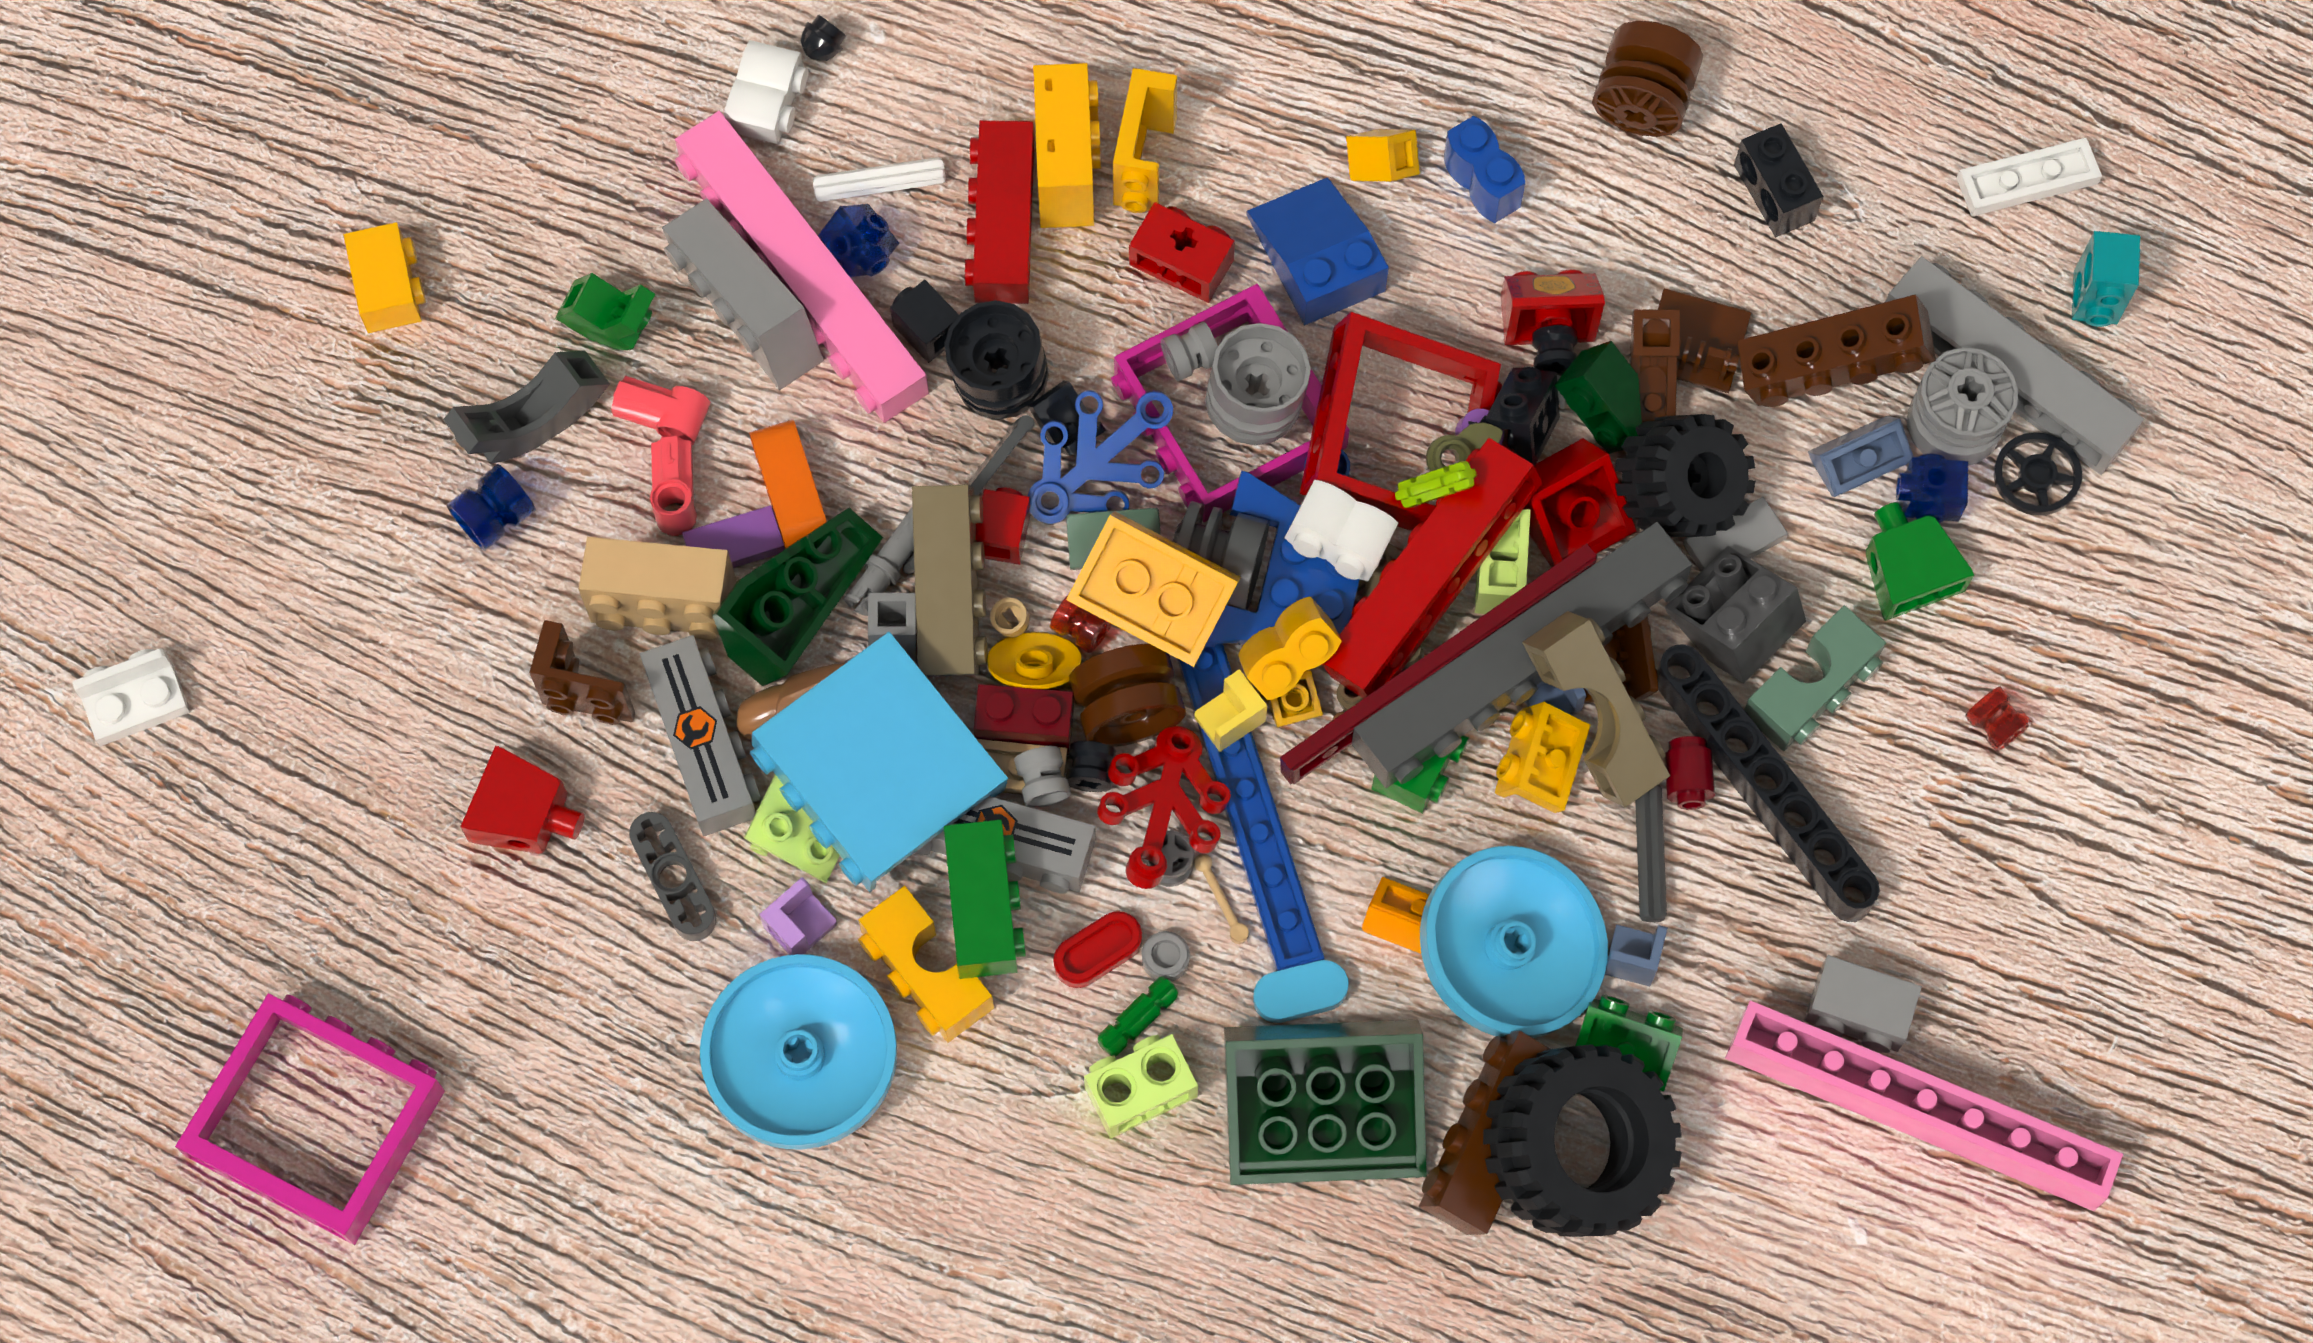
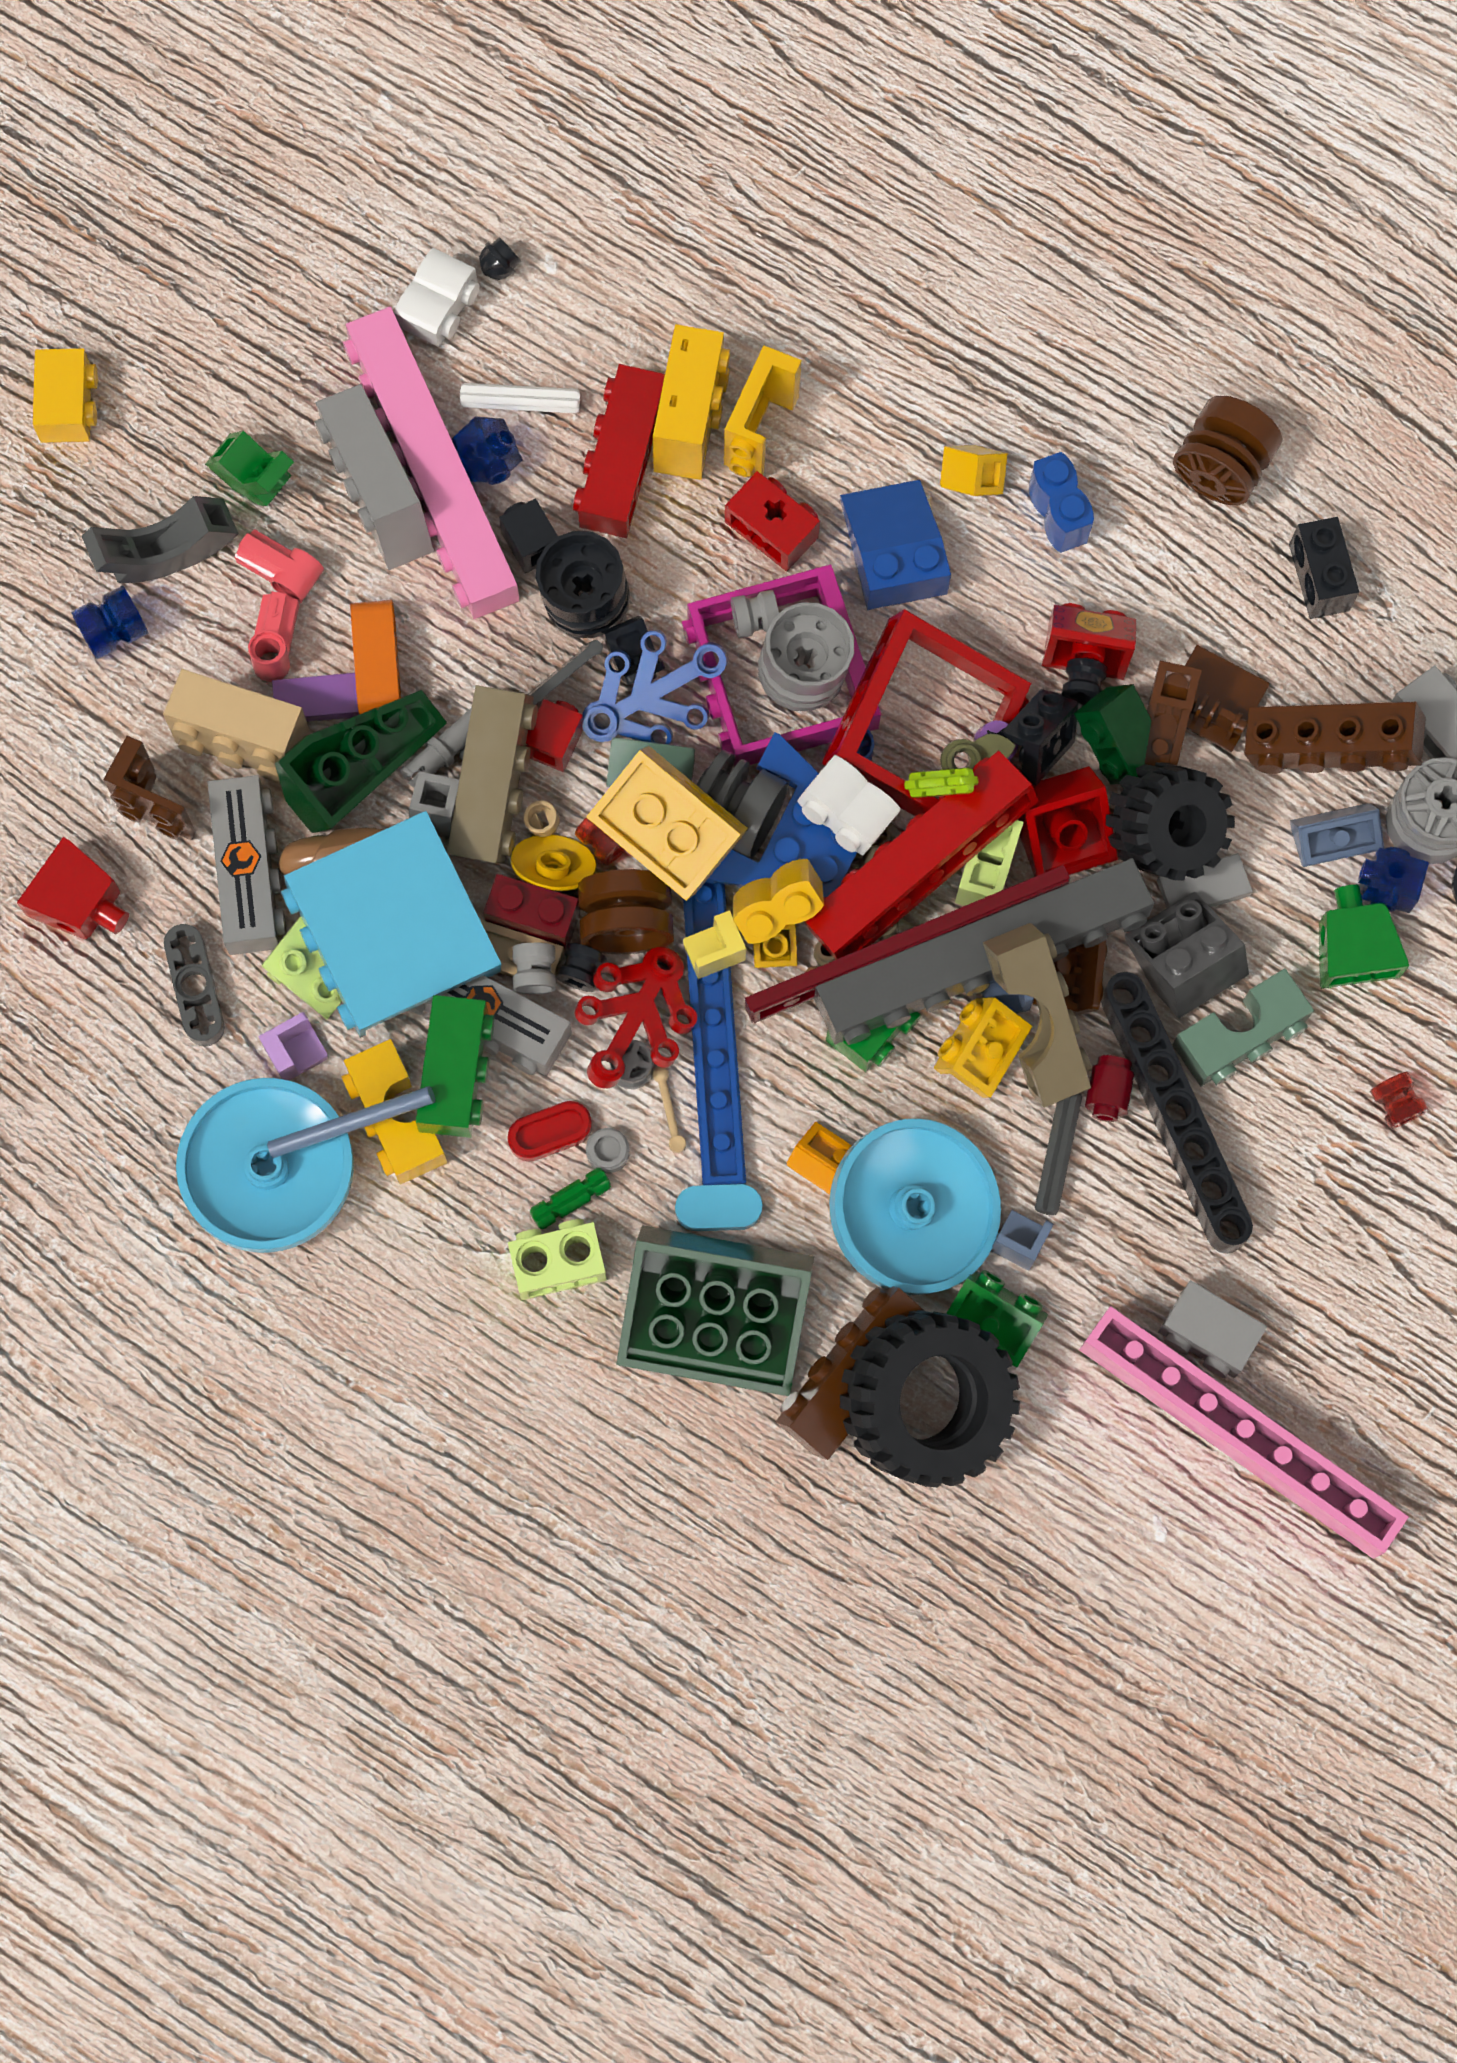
camera: 10 degrees right, 5 degrees up
(885, 981) = (351, 1122): none -> sand blue bar

